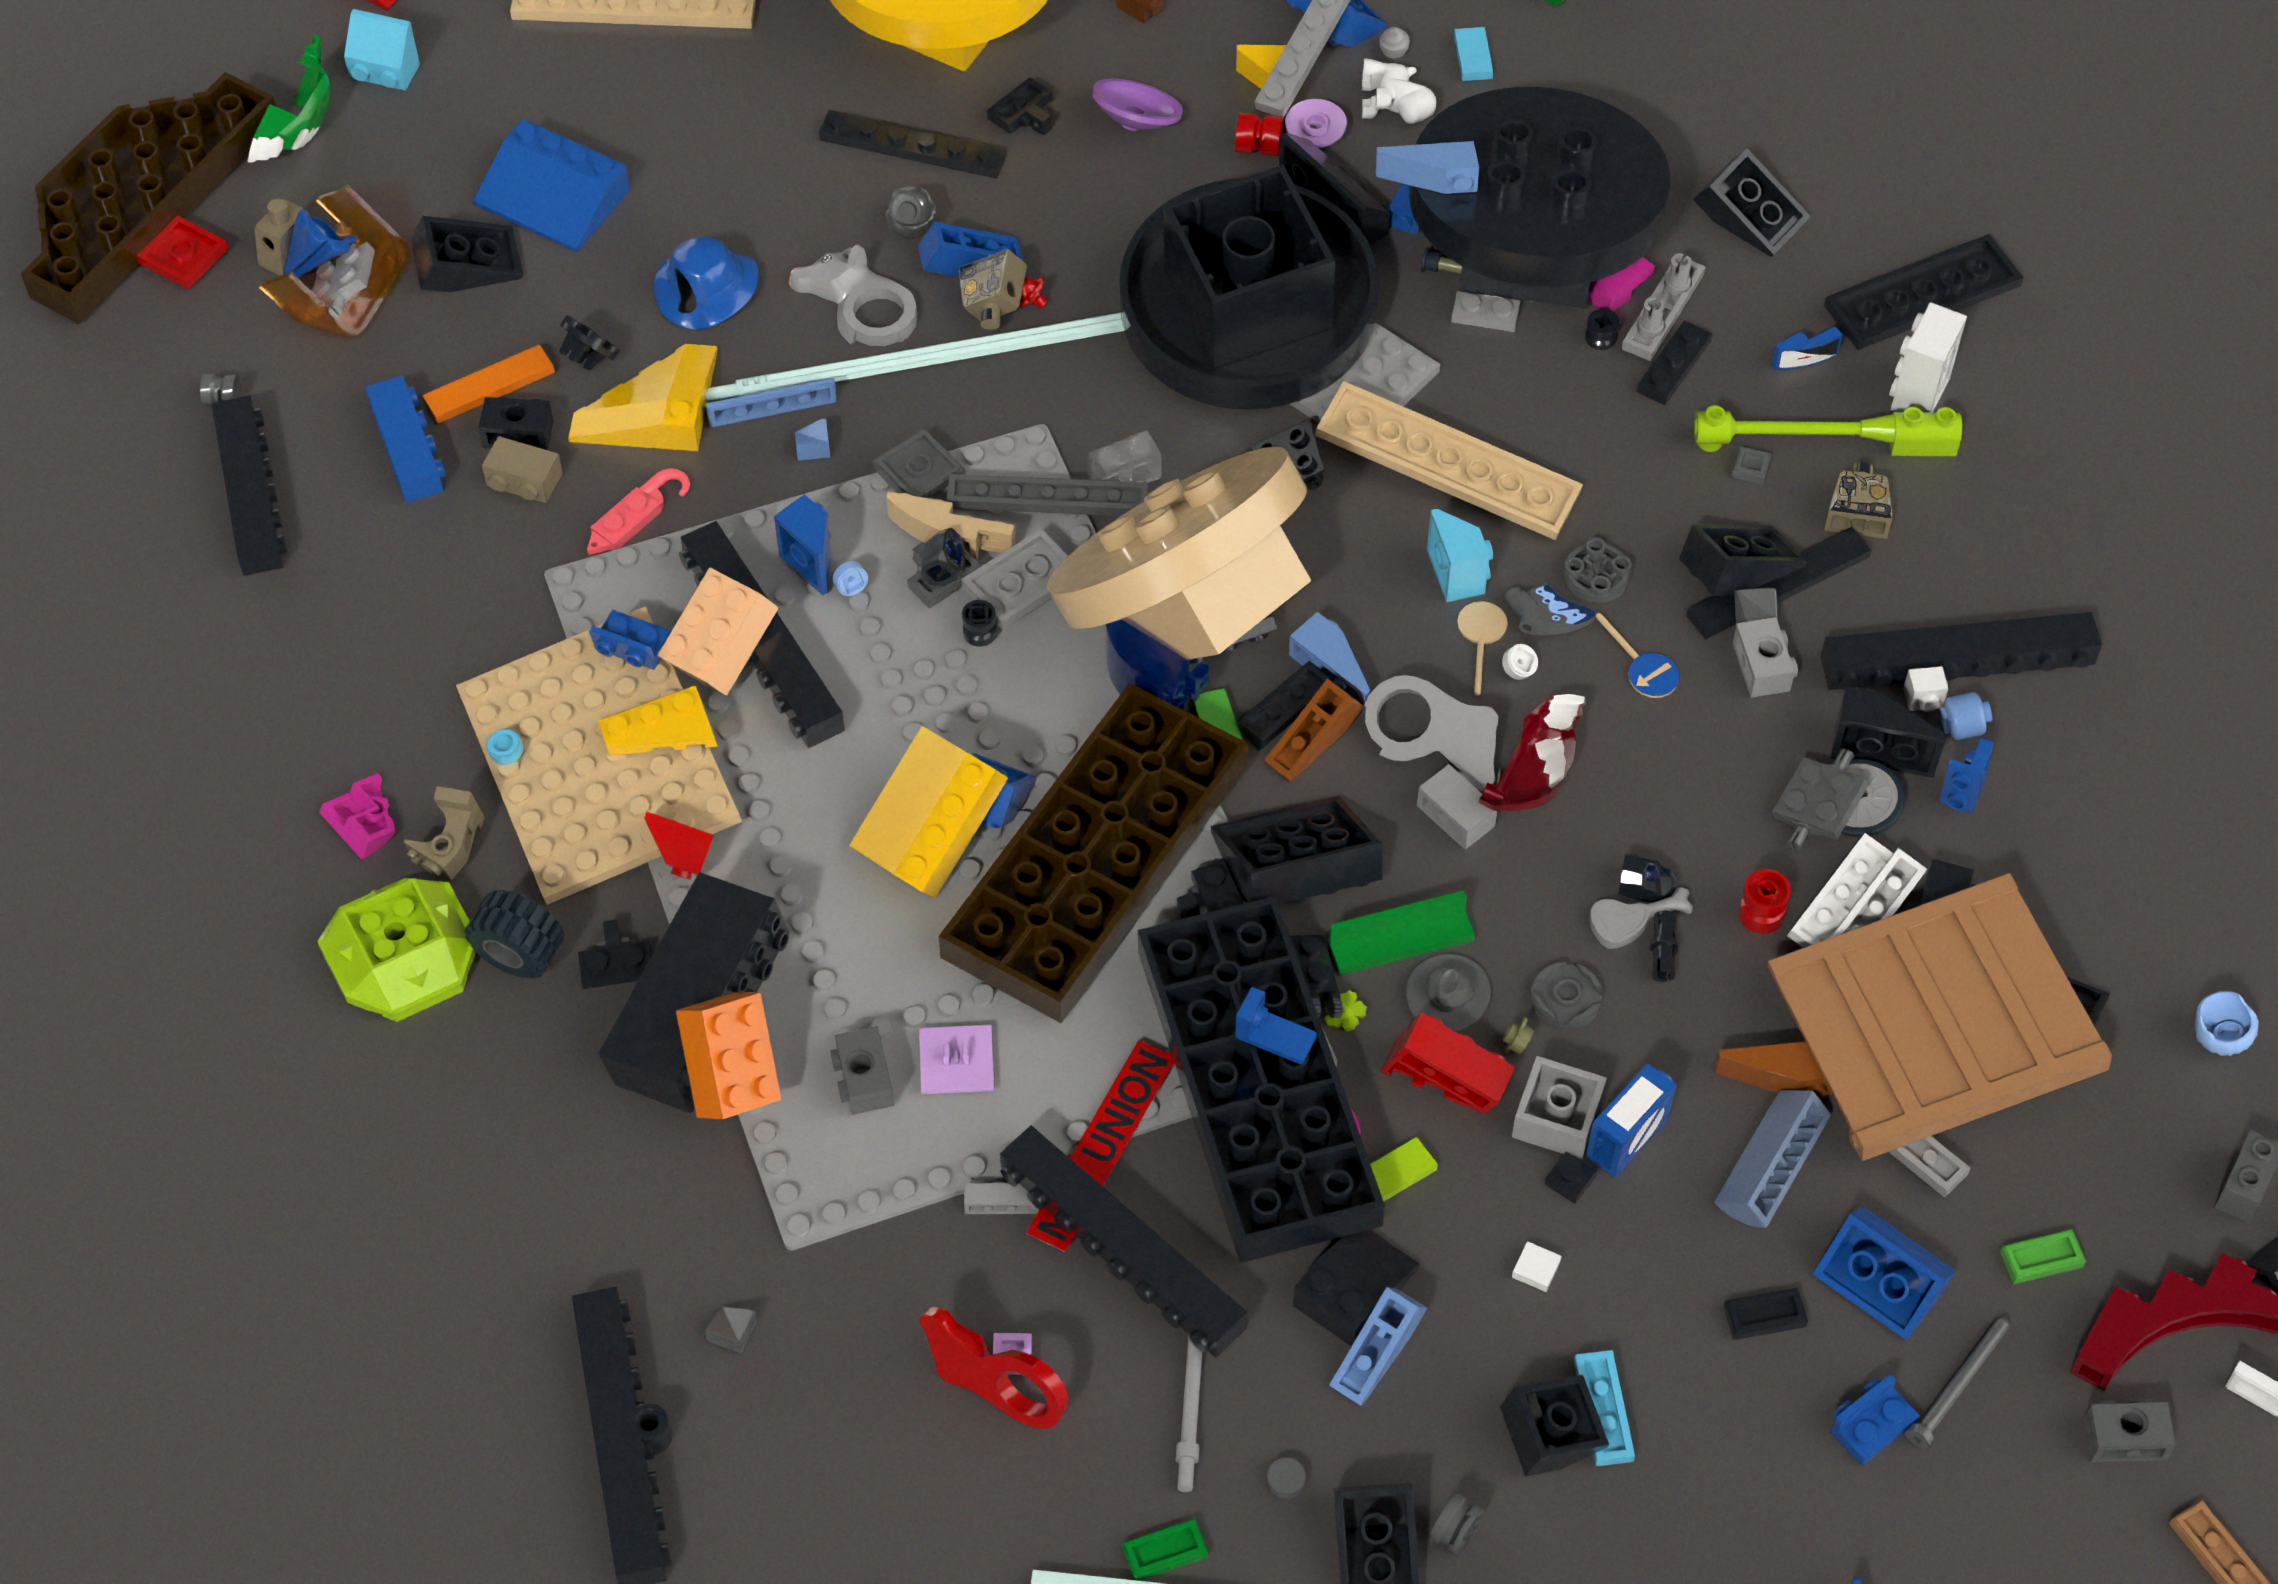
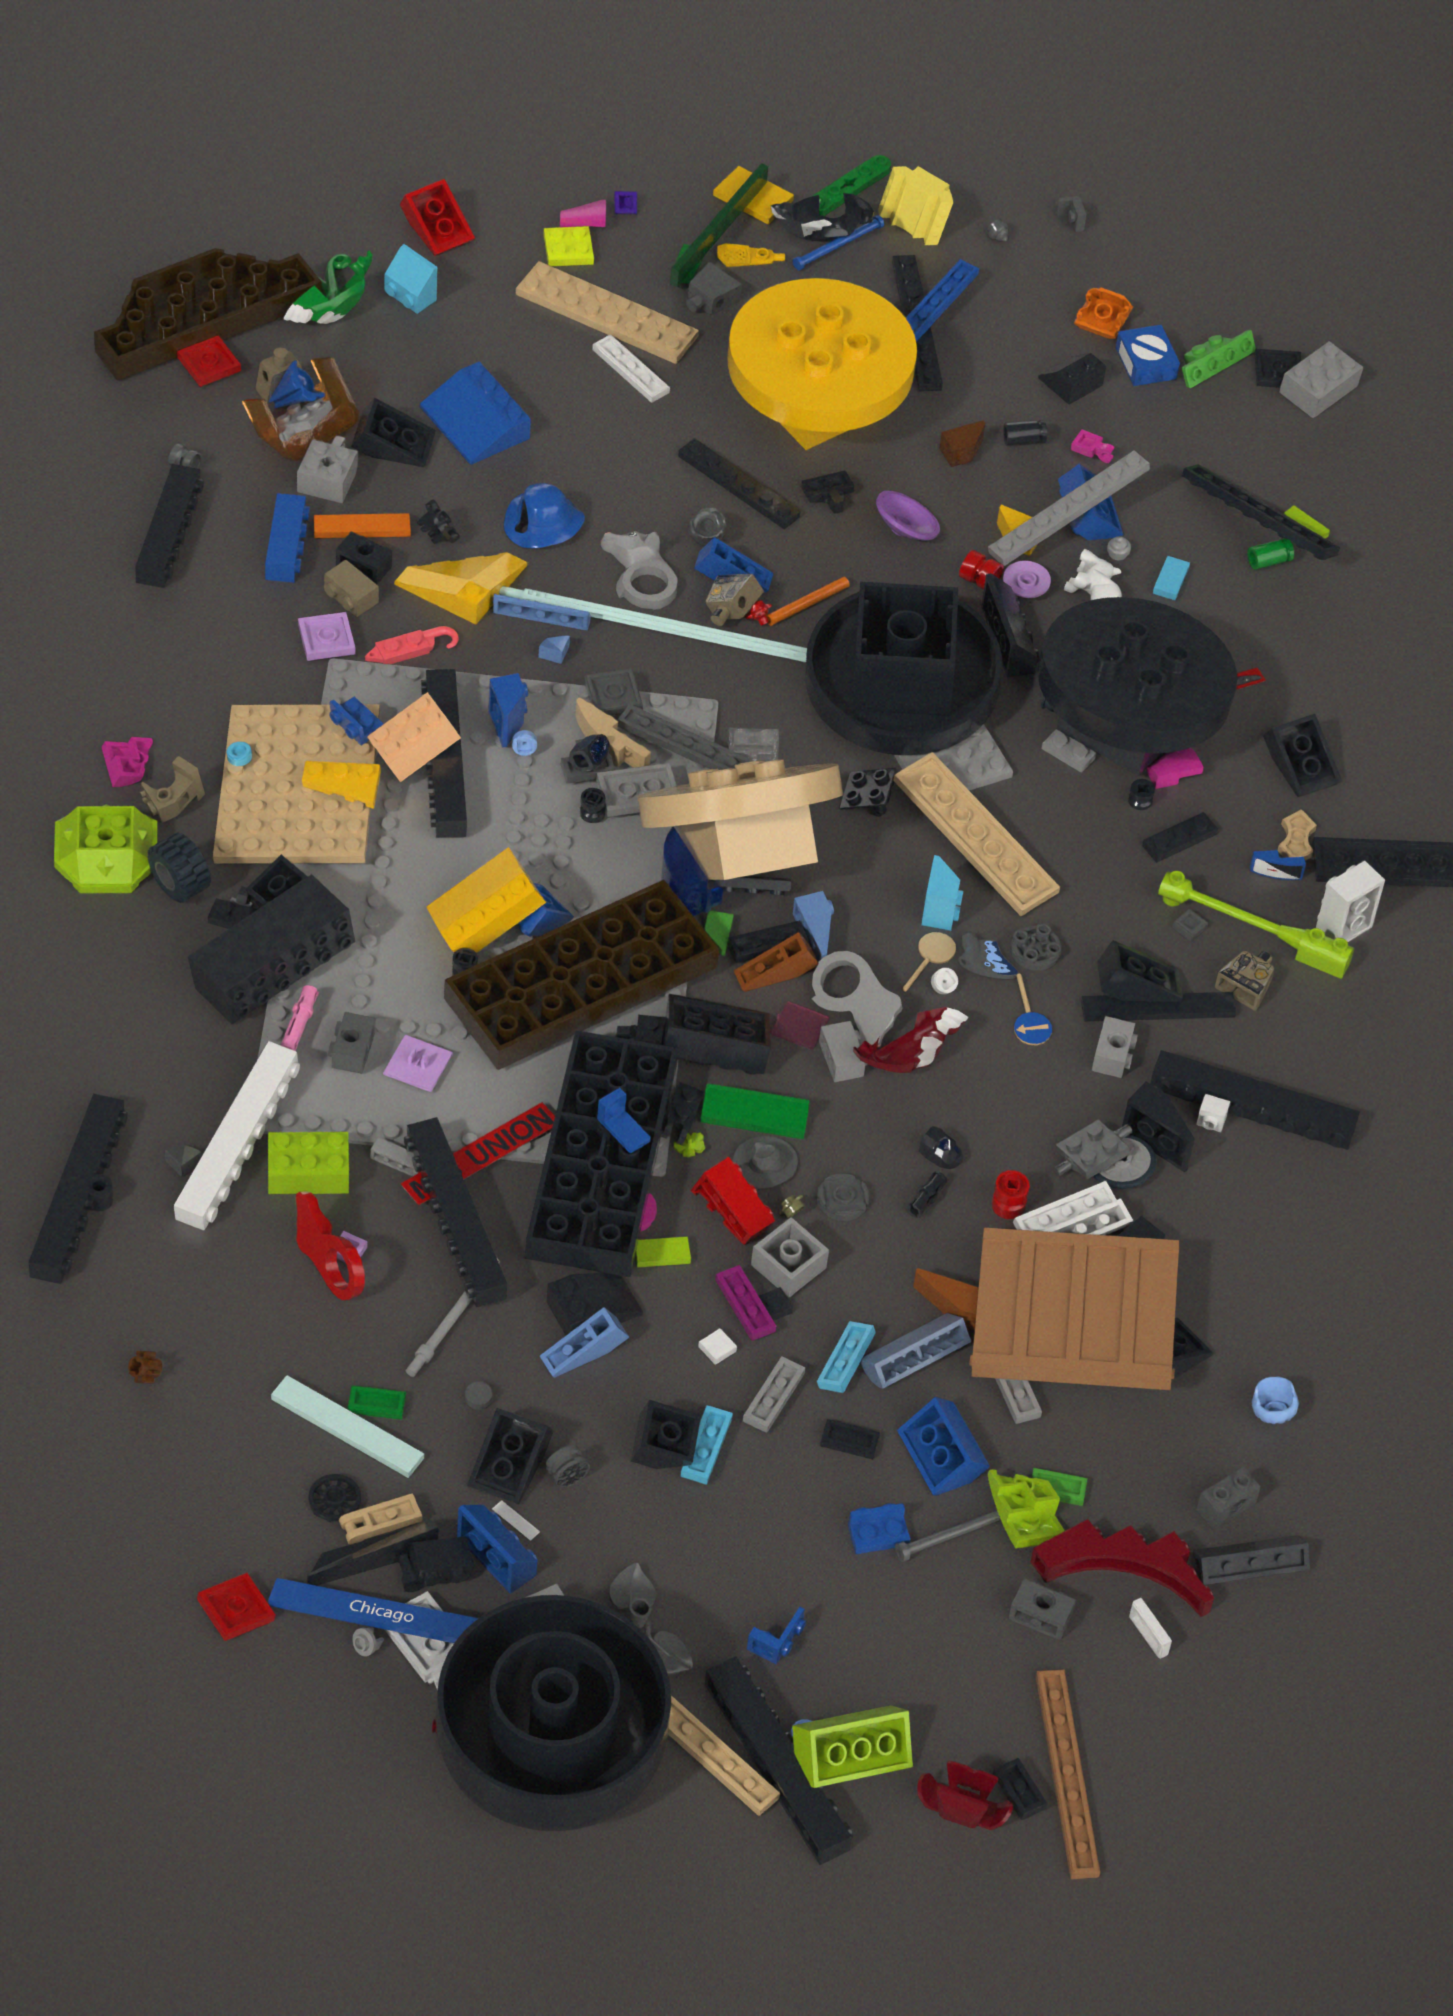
camera: 20 degrees right, 5 degrees down
(276, 64) = (331, 284): none -> green plant
(409, 331) = (327, 470): none -> light grey hinge
(525, 544) = (326, 636): none -> lavender plate
(652, 901) = (274, 881): none -> black slope
(680, 845) = (314, 857): red slope -> none
(703, 55) = (631, 368): none -> white tile
(728, 1055) = (267, 991): orange brick -> none
(783, 1109) = (301, 1013): none -> bright pink pin
(787, 1268) = (236, 1136): none -> white brick
(896, 1260) = (308, 1162): none -> lime brick
(943, 901) = (463, 960): none -> black wheel
(1078, 254) = (808, 600): none -> orange piece
(1383, 794) = (799, 1025): none -> clear pink piece
(1433, 167) = (1062, 630): medium blue slope -> none
(1537, 1192) = (745, 1303): none -> magenta plate
(1621, 924) = (907, 1169): light grey piece -> none
(1631, 1120) = (831, 1283): blue brick -> none
(1644, 1299) = (774, 1394): none -> light grey plate
(1663, 307) = (1194, 798): light grey plate -> none
(1699, 1207) = (846, 1357): none -> medium azure plate
(1755, 604) = (1128, 1010): dark grey slope -> none
(1800, 298) = (1298, 829): none -> tan tile
(1965, 716) = (1228, 1141): medium blue head -> none
(1965, 780) = (1201, 1179): blue bracket -> none
(2031, 1307) = (1026, 1508): none -> lime slope

